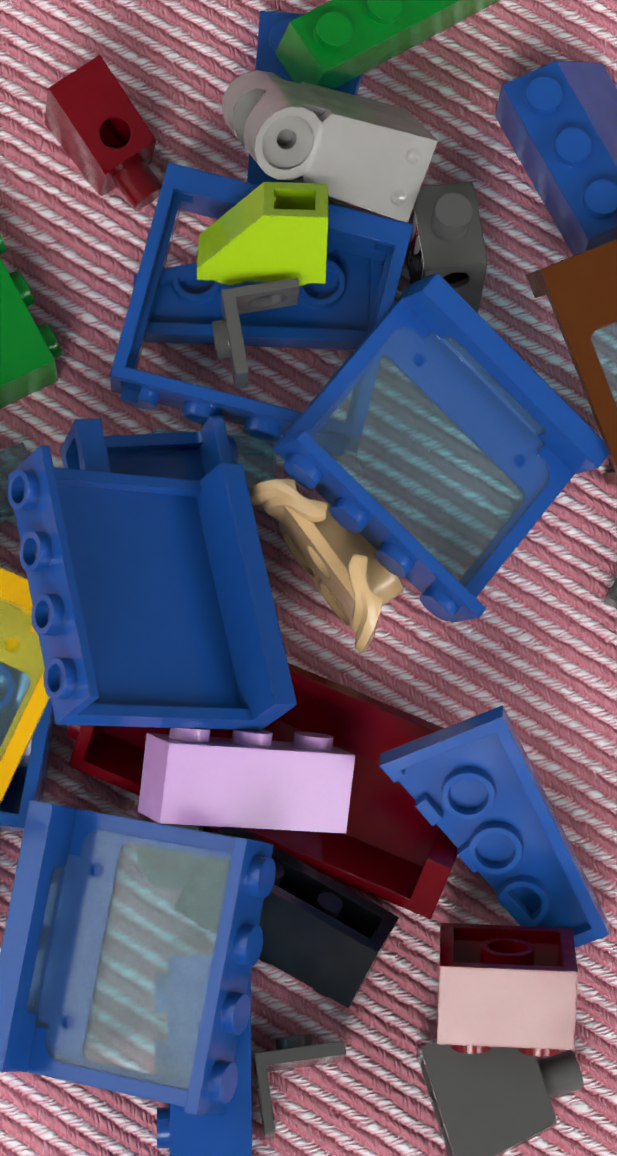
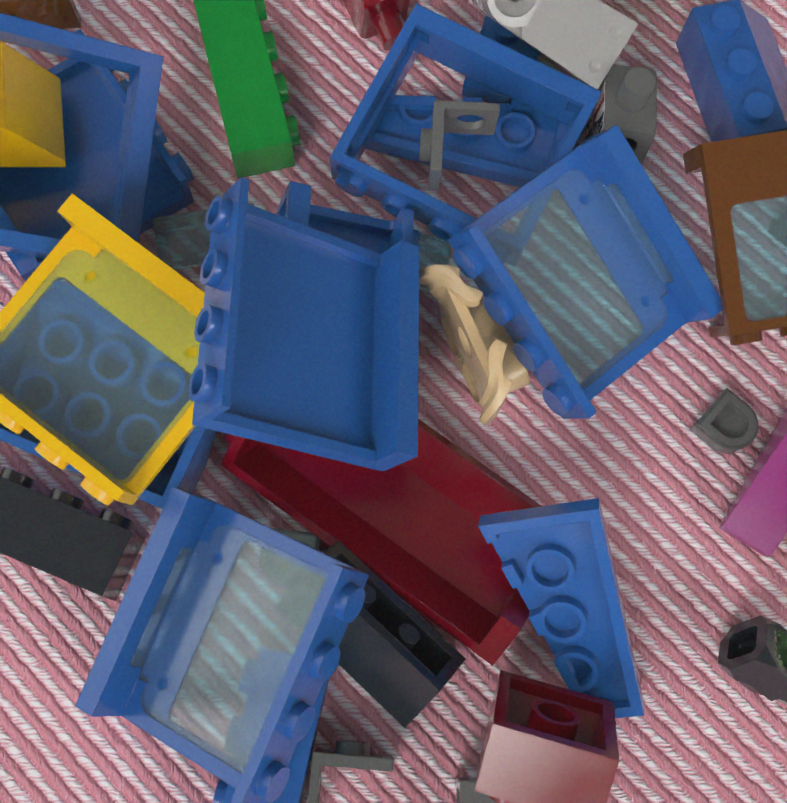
camera: 15 degrees right, 0 degrees up
(246, 780) = (361, 512): lavender brick -> none
(269, 237) = (484, 68): lime slope -> none

